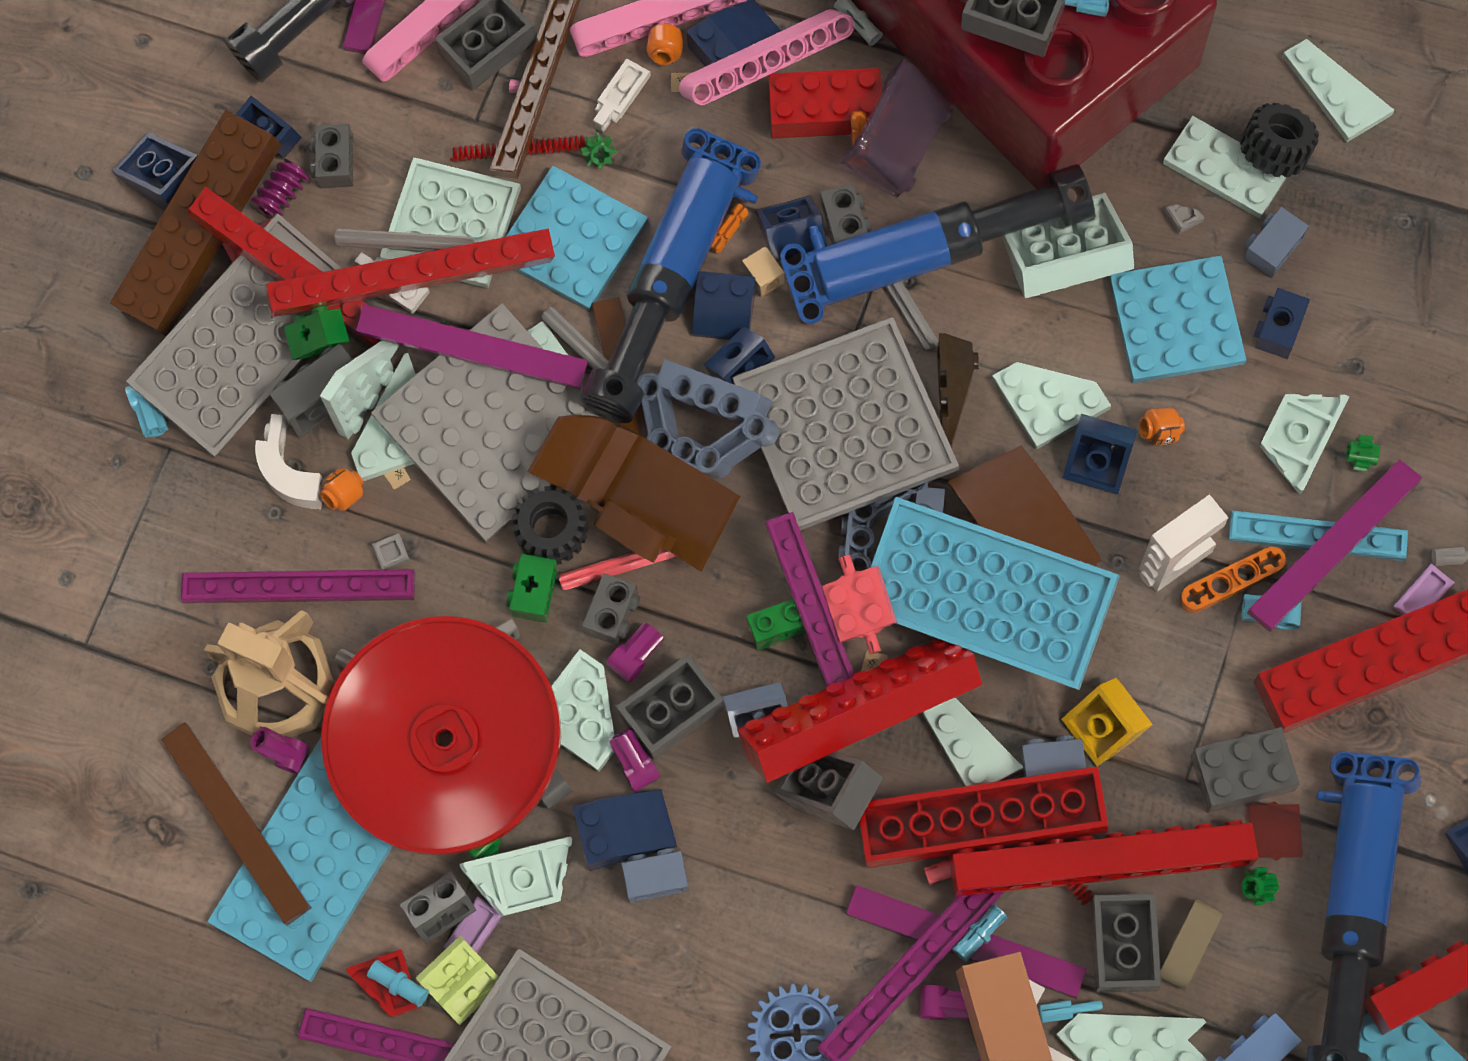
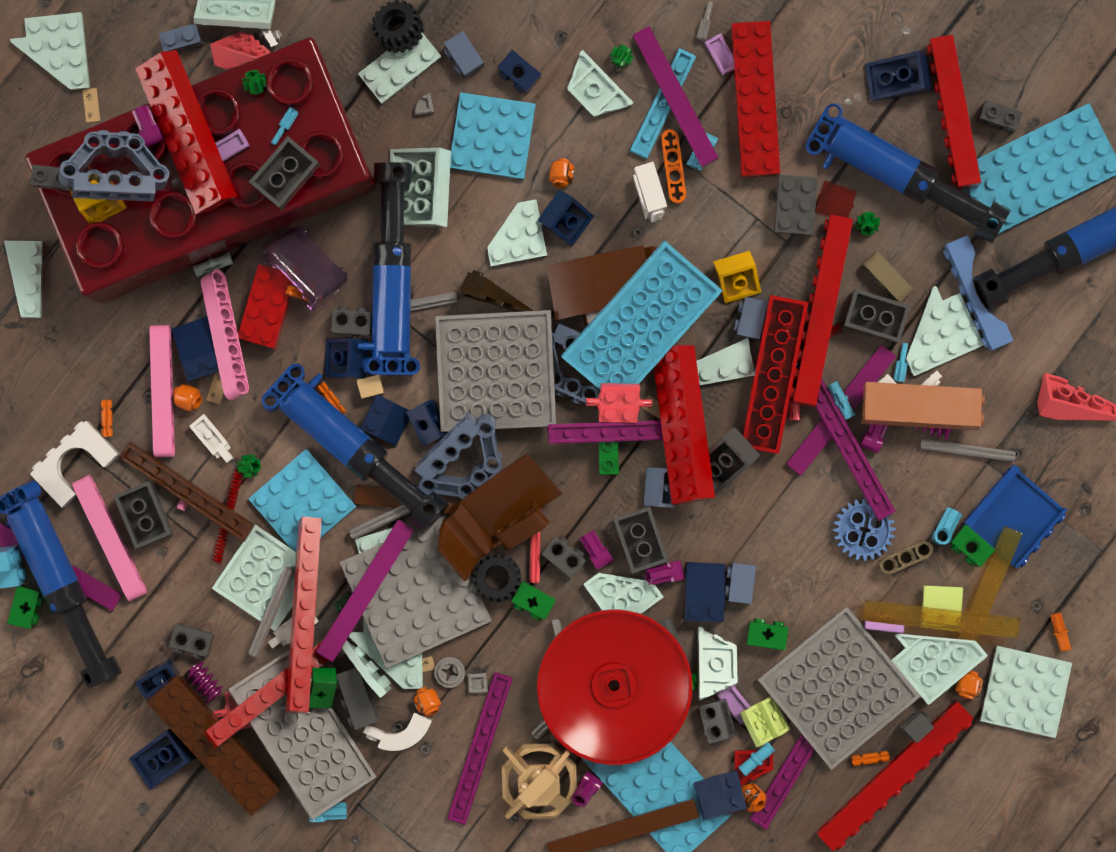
camera: 75 degrees left, 15 degrees up
(326, 946) = (720, 795): none -> dark blue slope
(337, 997) = (754, 797): none -> orange head
(385, 500) = (454, 680): none -> light grey gear
(586, 958) = (776, 641): none -> green brick

